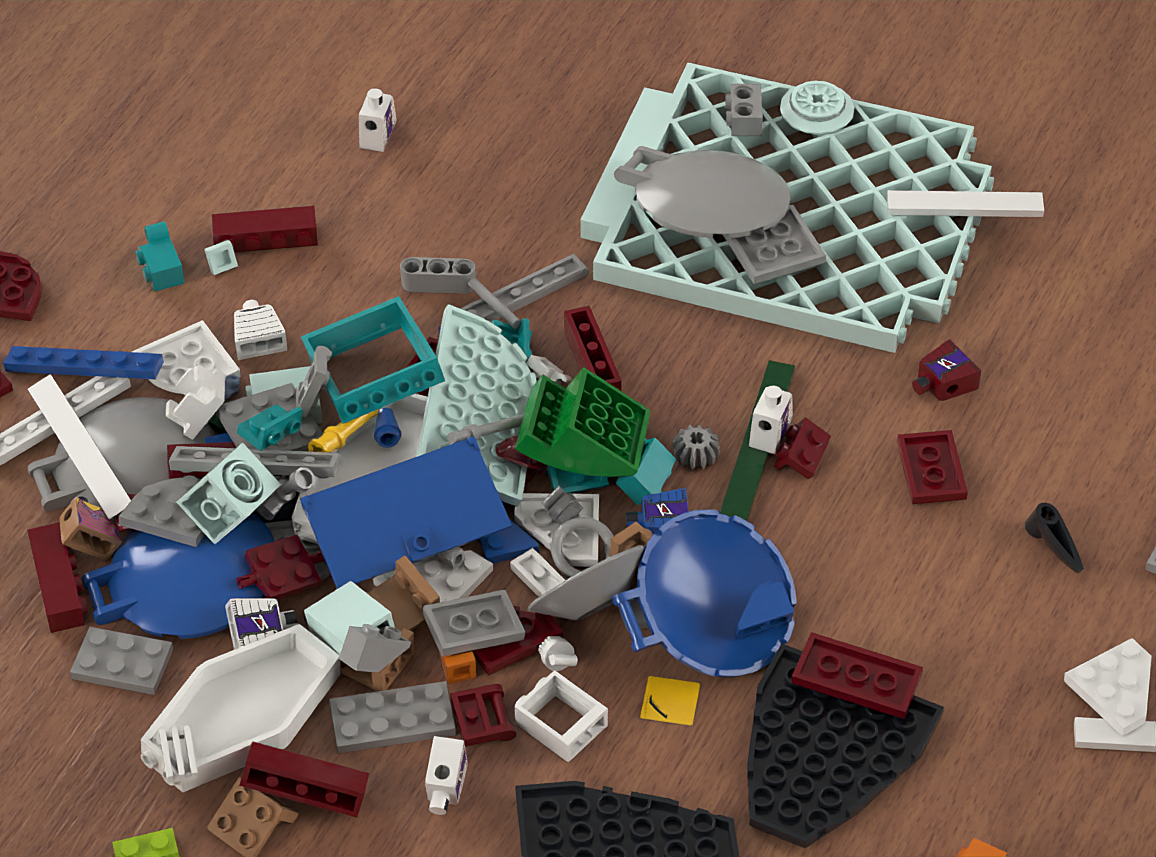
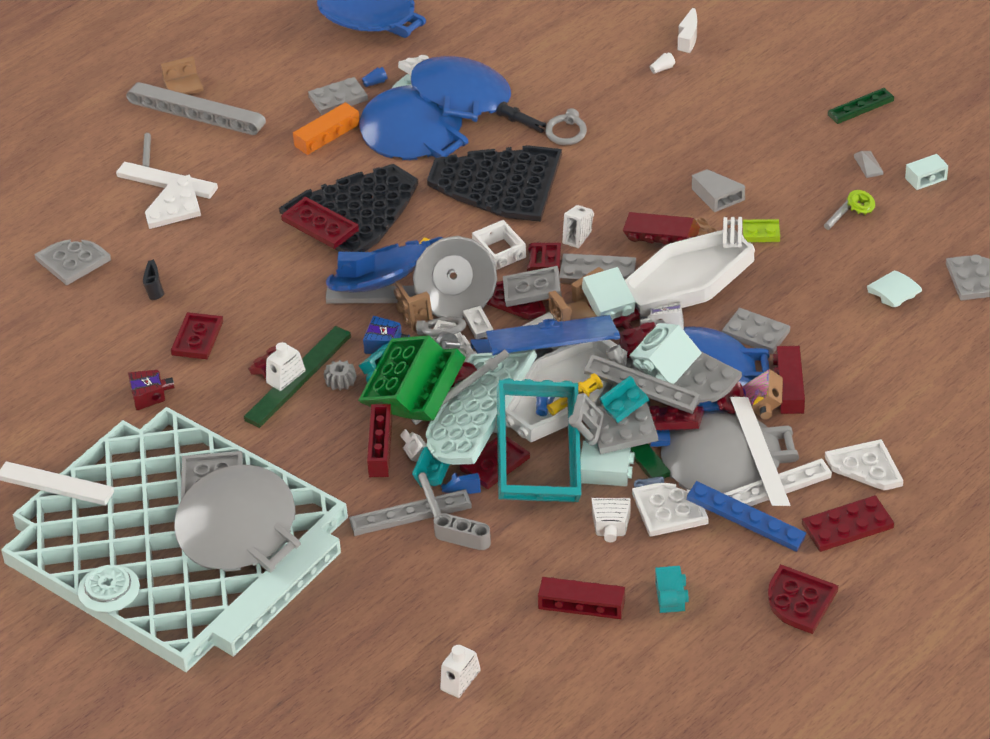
camera: 160 degrees left, 5 degrees down
(203, 398) = (667, 447): white panel -> none
(221, 257) = (625, 580): light aqua plate -> none
(372, 648) = (600, 262): light grey slope -> none
(745, 110) = (167, 588): light grey brick -> none

